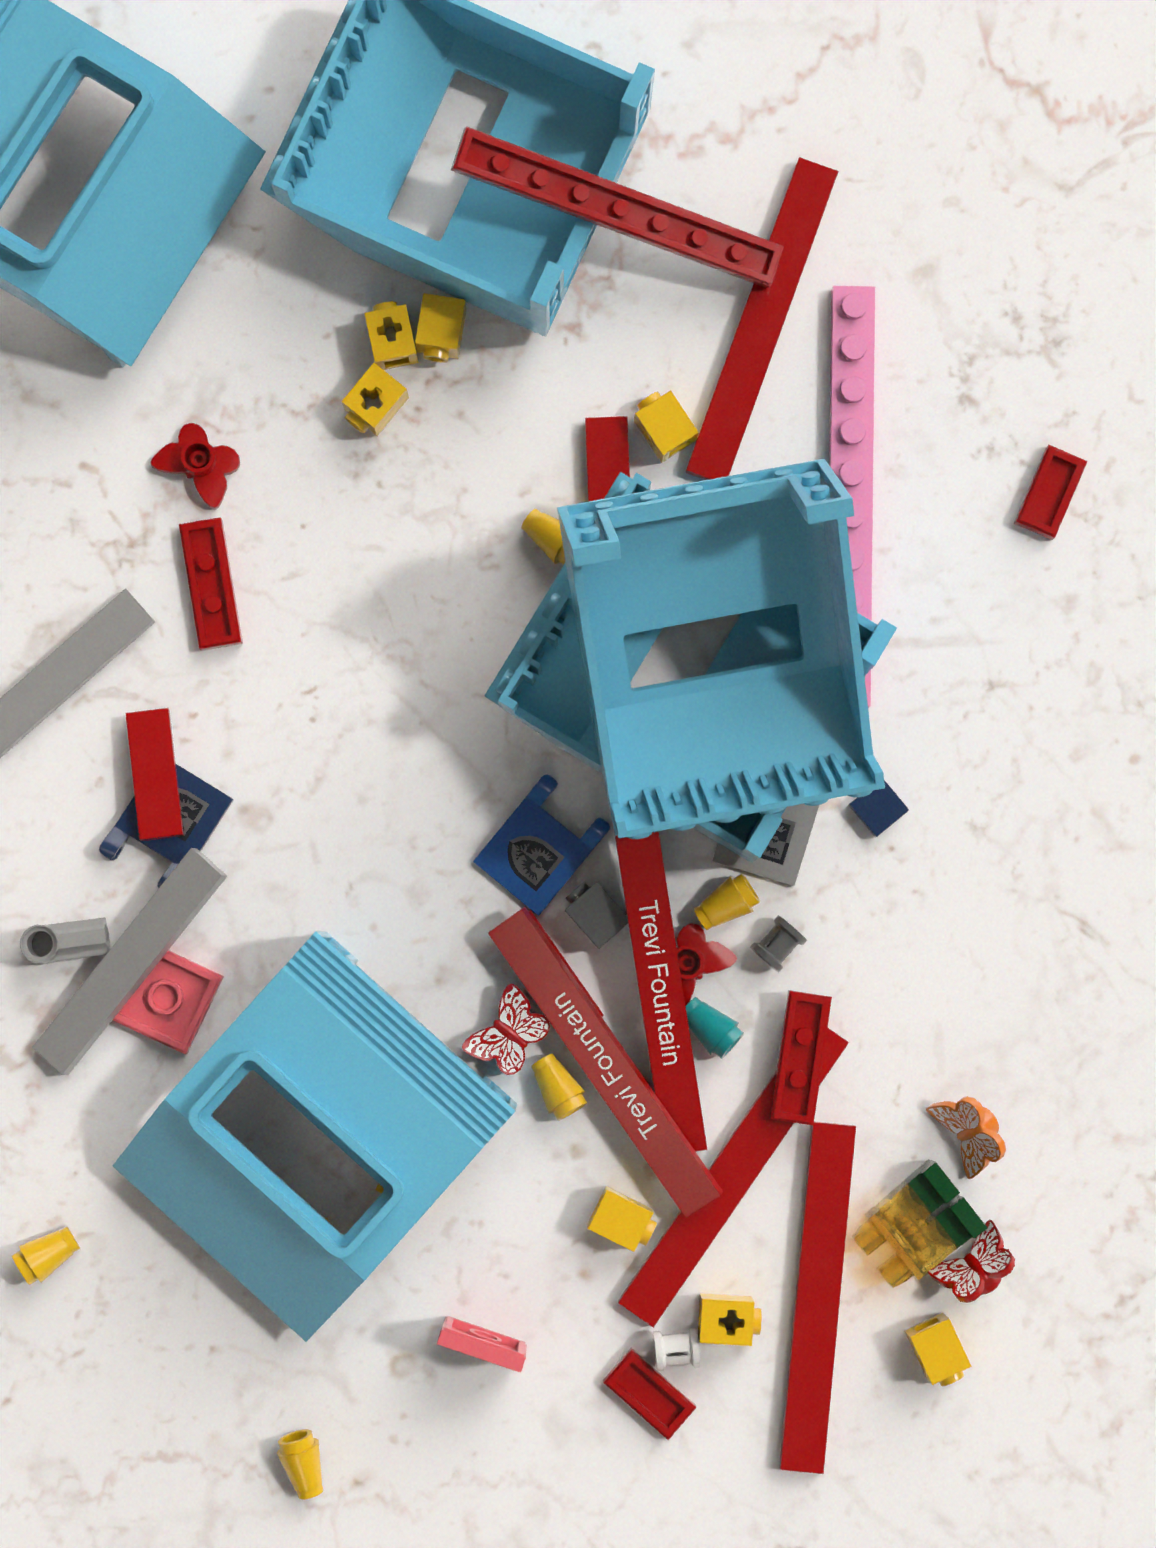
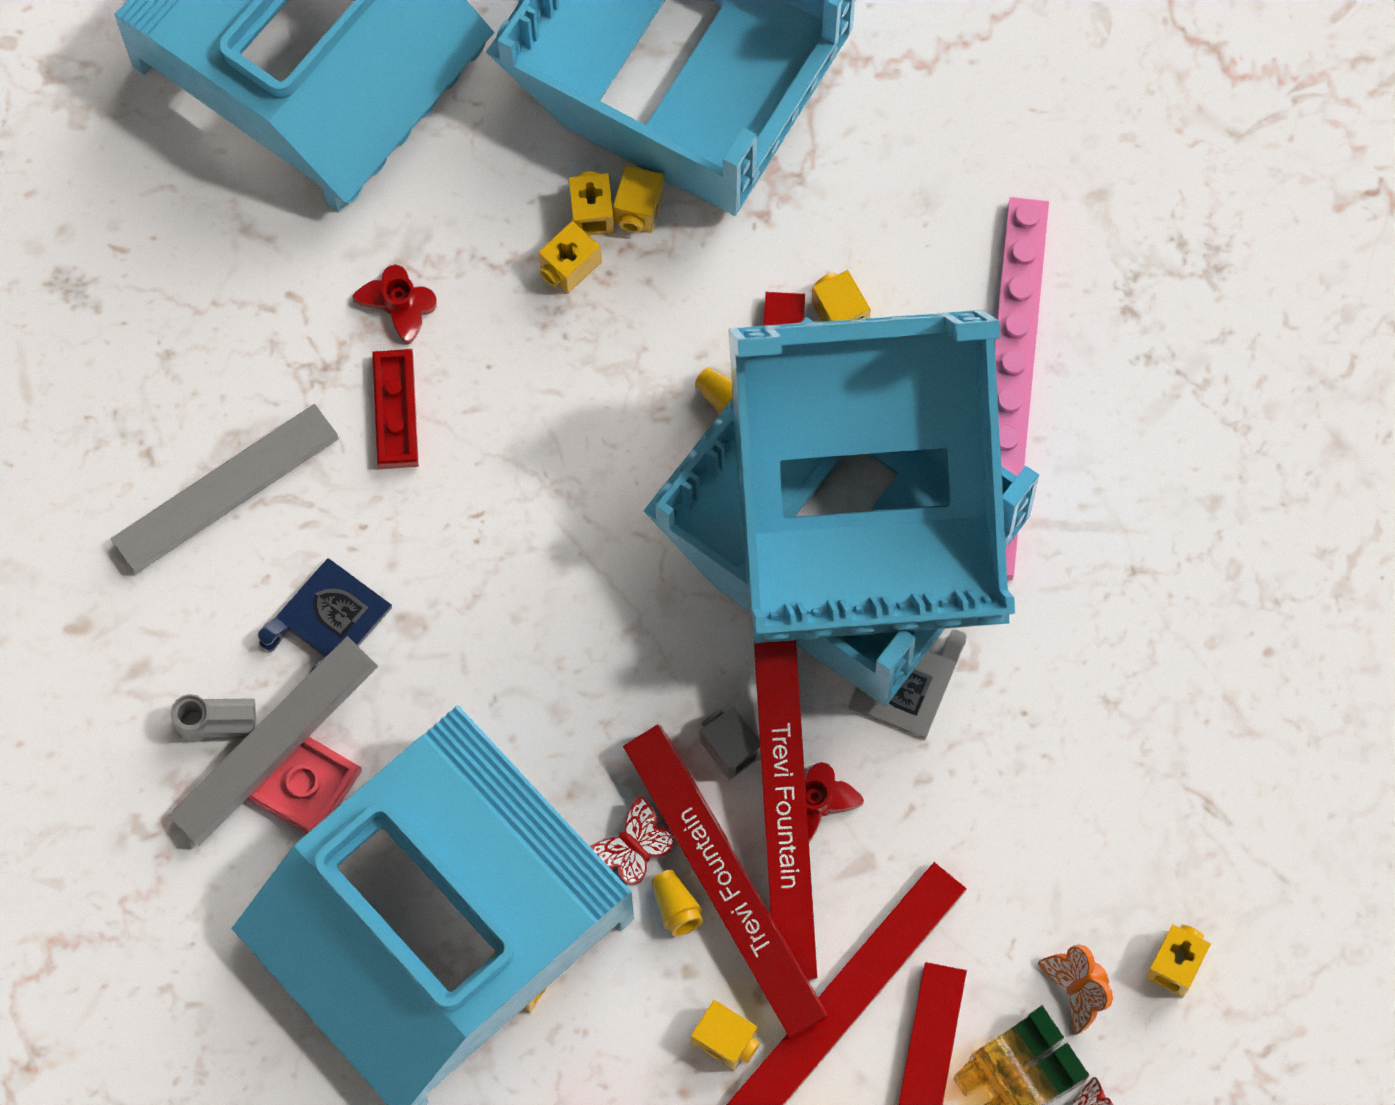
camera: 15 degrees right, 15 degrees down
(44, 1255) = (152, 1014): yellow cone -> none
(154, 774) = (320, 573): red tile -> none
(536, 852) = (677, 682): blue flag -> none
(616, 207) = (813, 103): red tile -> none
(712, 1028) = (834, 862): teal cone -> none
(727, 902) = (858, 744): yellow cone -> none
(761, 324) = (949, 204): red tile -> none
(778, 943) = (905, 787): dark grey bush -> none
(800, 1058) = (917, 896): red tile -> none
(879, 809) = (1014, 671): dark blue tile -> none
(1050, 492) = (1202, 399): red tile -> none
(1068, 1111) = (1169, 973): none -> yellow brick

